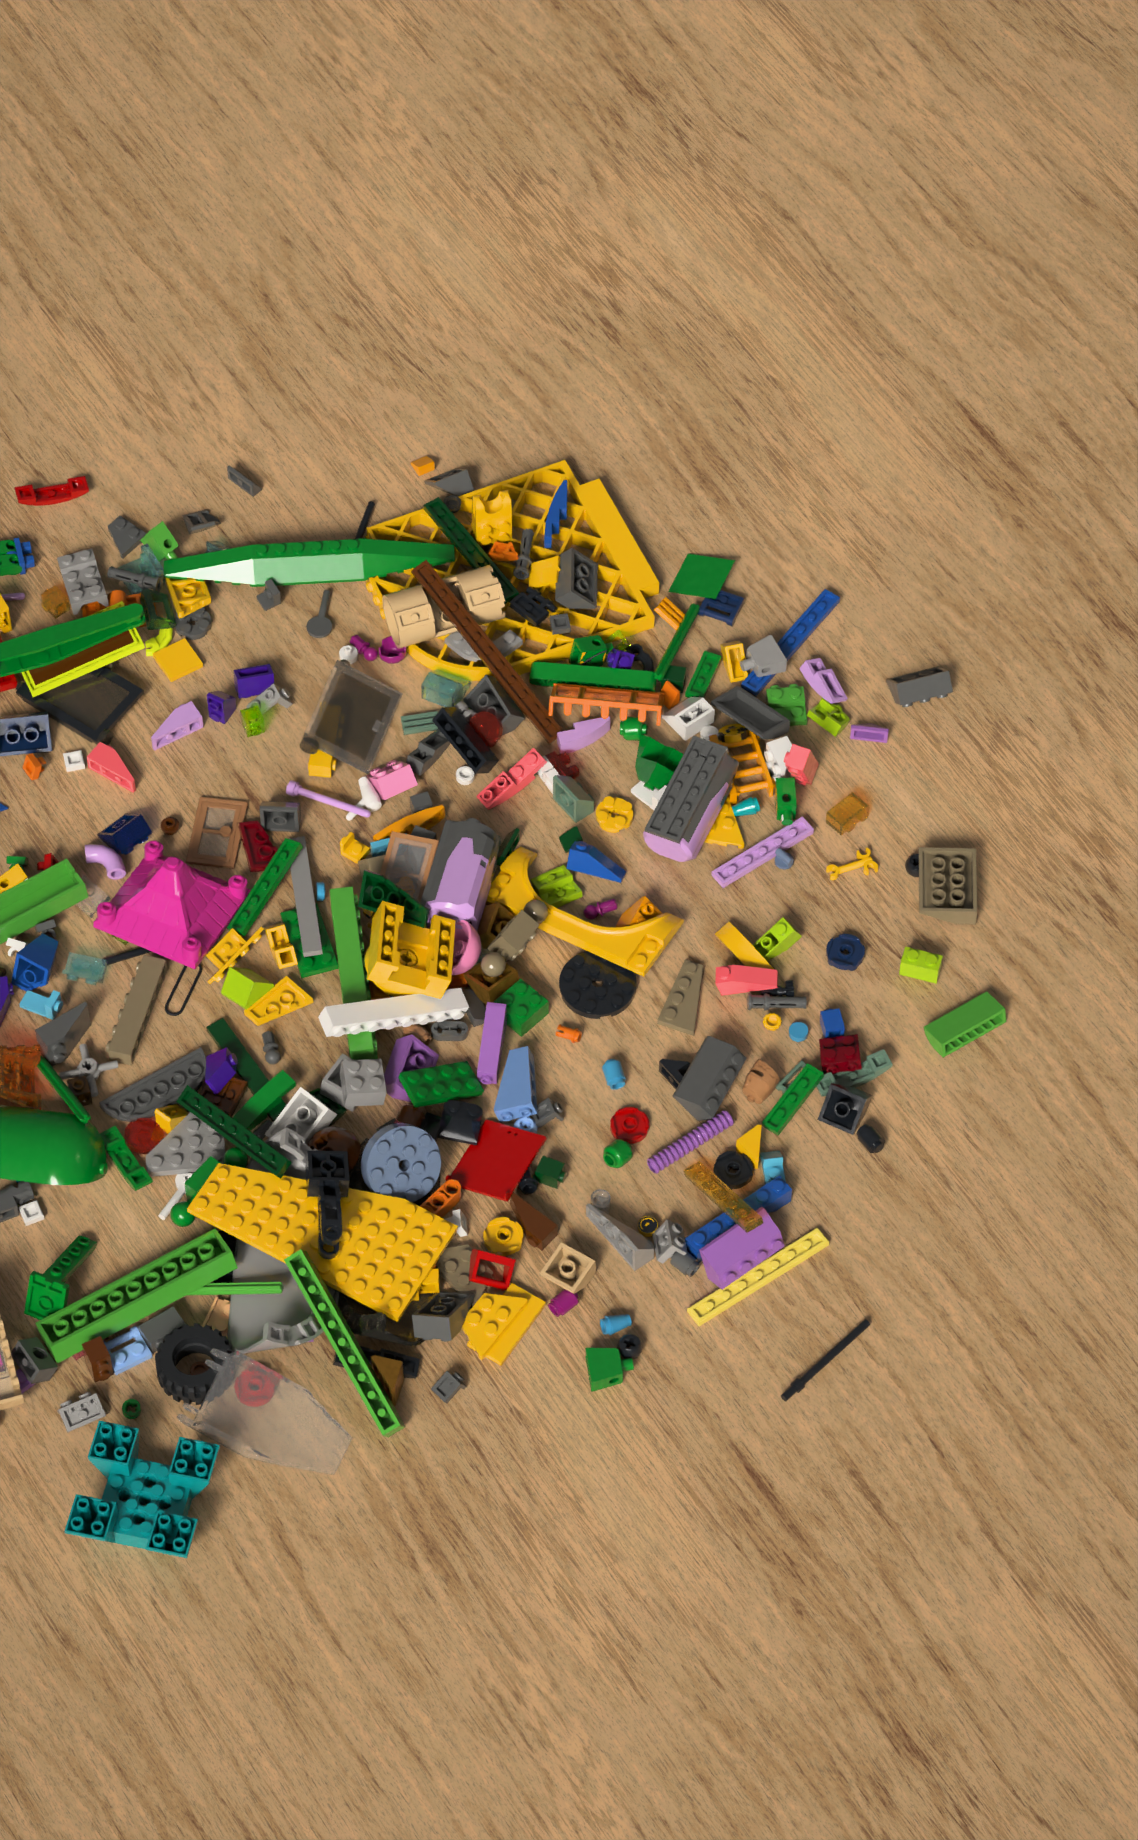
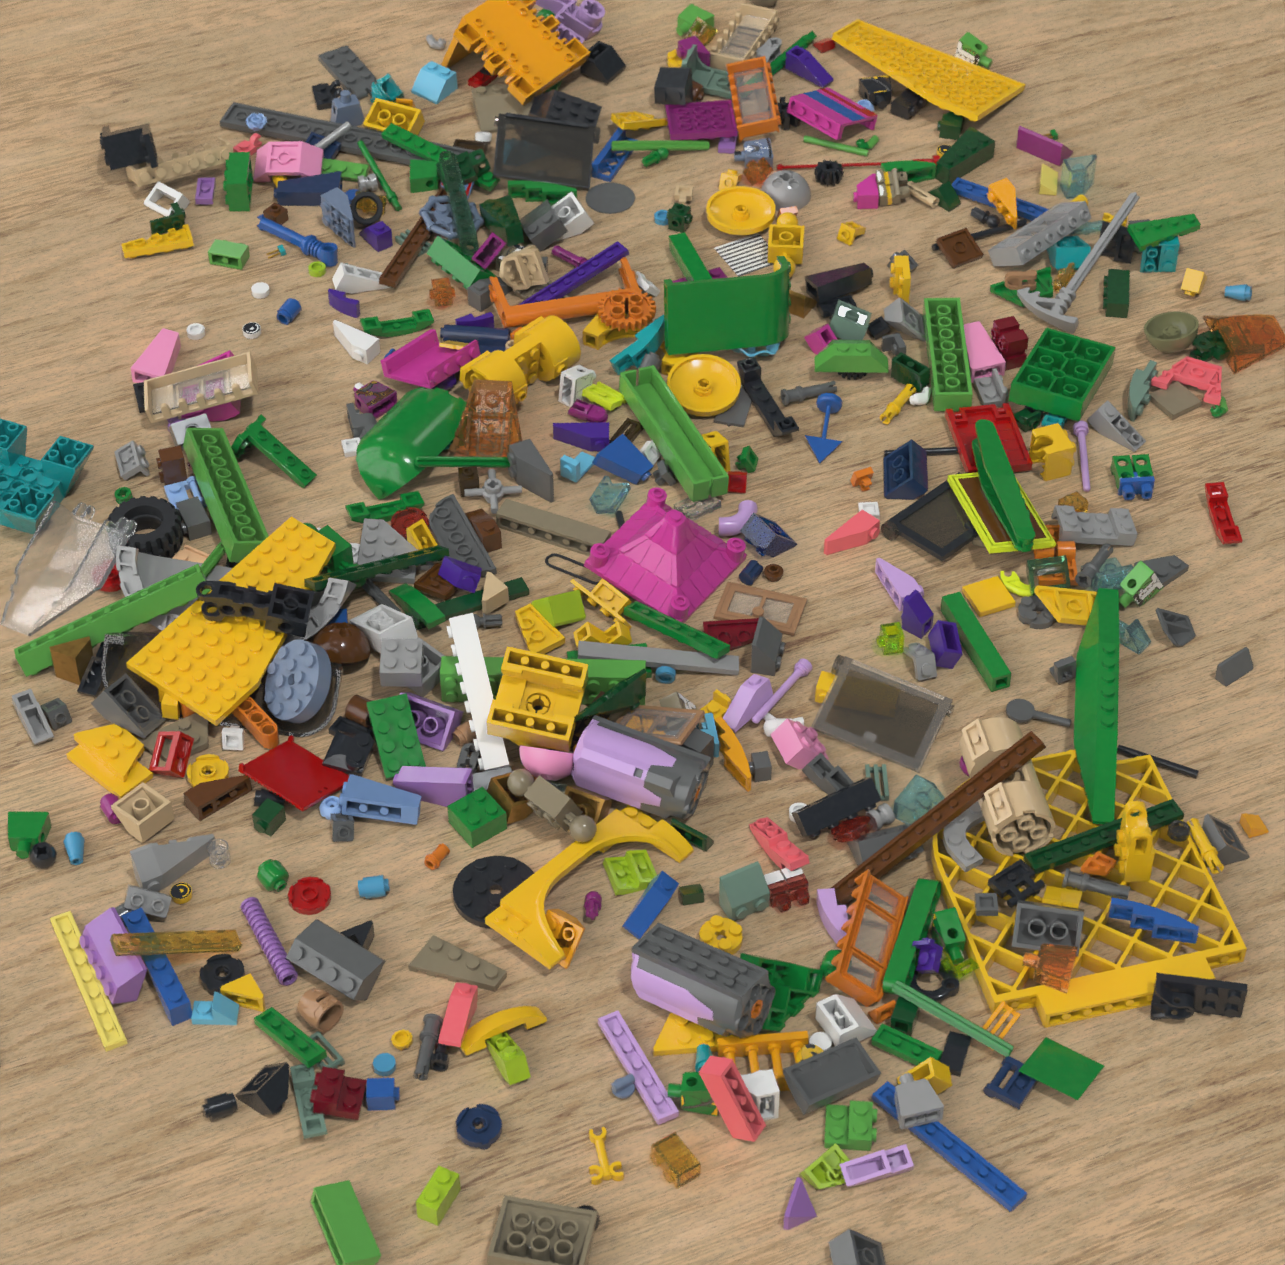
camera: 100 degrees right, 10 degrees down
(141, 1067) = (486, 529): none -> reddish brown slope
(175, 842) = (750, 572): none -> dark blue piece
(241, 1039) = (494, 593): none -> tan slope
(259, 653) = (976, 642): none -> green brick
(347, 822) = (748, 701): none -> lavender slope
(460, 1404) = (32, 717): none -> light grey slope
(473, 483) = (1208, 852): none -> yellow pin
(616, 574) = (1052, 965): none -> clear orange torso
(625, 497) = (1196, 995): none -> black plate
(697, 645) = (956, 1052): none -> black tile

